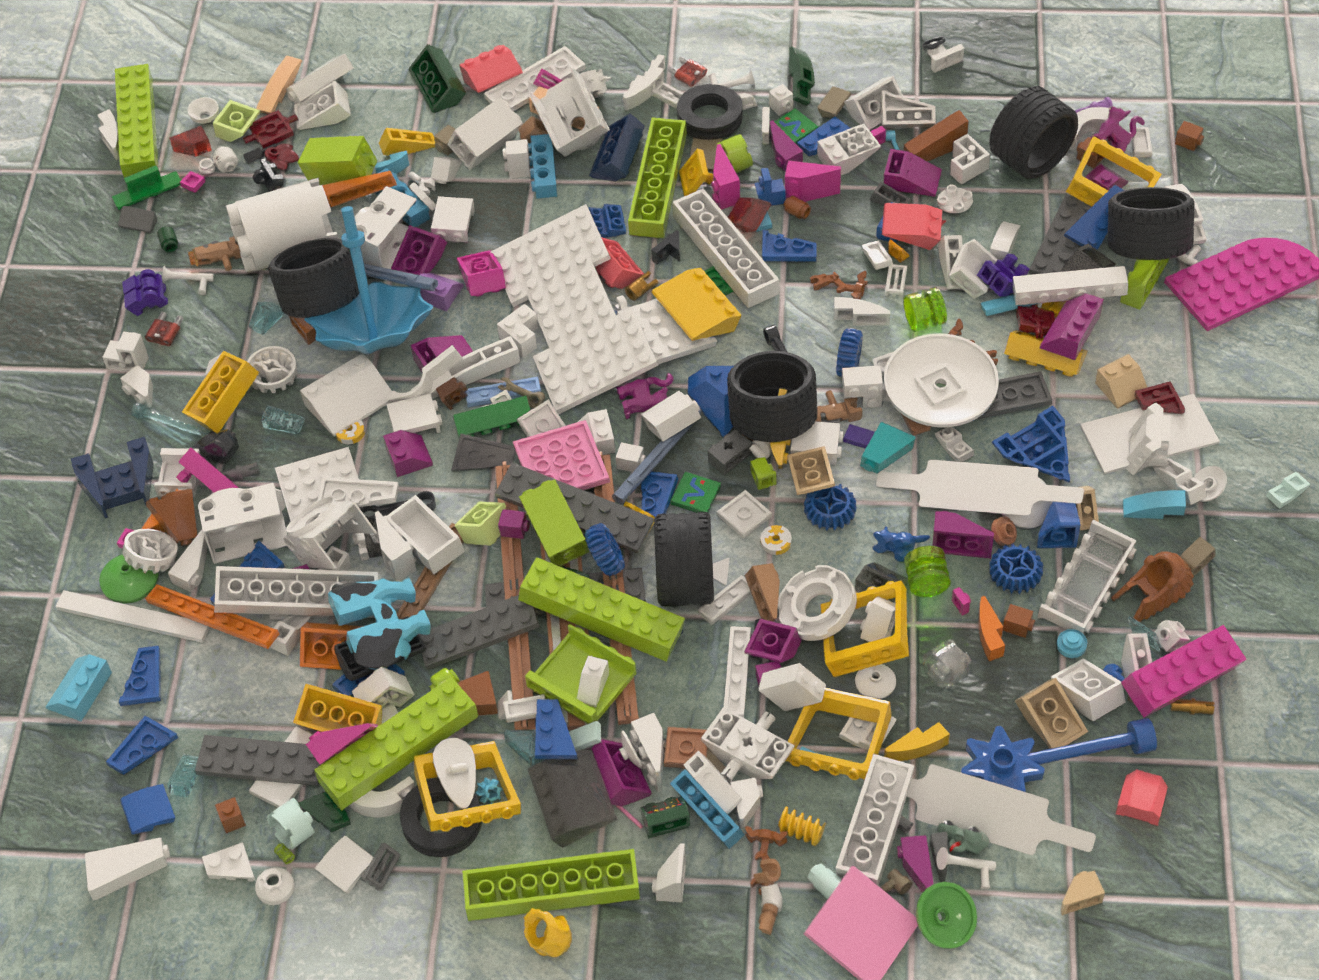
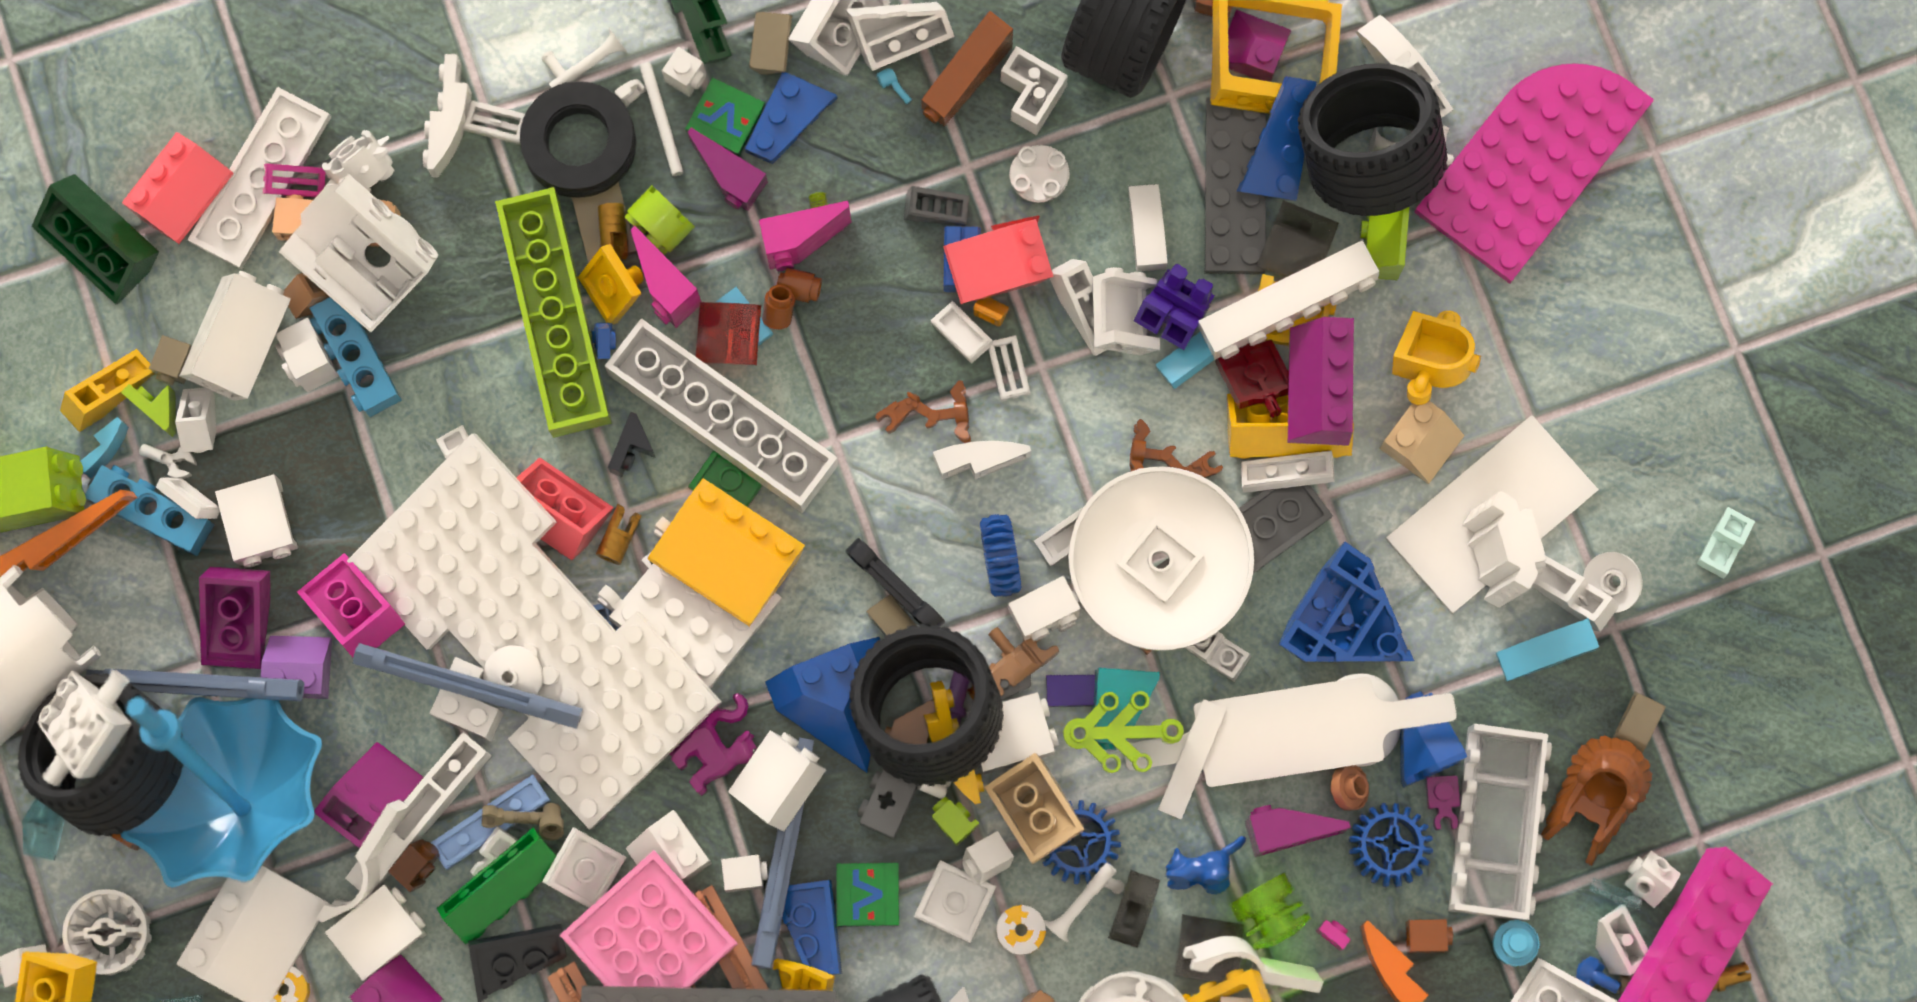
camera: 25 degrees left, 25 degrees up
(315, 249) = (83, 725): none -> white slope
(382, 227) = (153, 611): white piece -> none
(426, 155) = (160, 410): none -> lime slope
(525, 314) = (467, 686): none -> sand blue piece
(554, 327) = (521, 663): none -> white dish
(609, 220) = (504, 423): blue slope -> none
(617, 149) = (462, 275): dark blue slope -> none
(678, 191) = (604, 339): none -> blue plate
(689, 73) = (508, 64): clear red piece -> none
(709, 148) = (613, 227): none -> pearl gold hinge
(758, 121) = (661, 119): none -> white bar
(765, 125) = (680, 133): white tile -> none
(770, 190) = (744, 271): blue brick -> none
(773, 494) = (987, 858): none -> white brick
(780, 210) = (778, 307): none -> dark orange brick
(785, 249) = (813, 374): blue wing -> none
(833, 523) = (1102, 879): none -> white piece
(847, 148) = (834, 138): white slope -> none
(847, 548) = (1134, 908): none -> clear smoke slope
(879, 134) = (867, 91): dark pink plate -> none
(879, 455) = (1117, 732): none -> lime plant
(909, 596) = (1272, 971): none -> white piece
(911, 173) = (954, 151): magenta slope -> none
(920, 483) = (1192, 759): none -> white sticker
(925, 309) = (1086, 418): clear neon green wheel -> none
(1035, 369) = (1287, 471): none -> white tile
(1058, 559) = (1443, 795): none -> magenta plate
(1087, 508) = (1443, 678): tan slope -> none
(1144, 338) = (1434, 354): none -> yellow piece
(1162, 394) = (1489, 449): dark red wing -> none

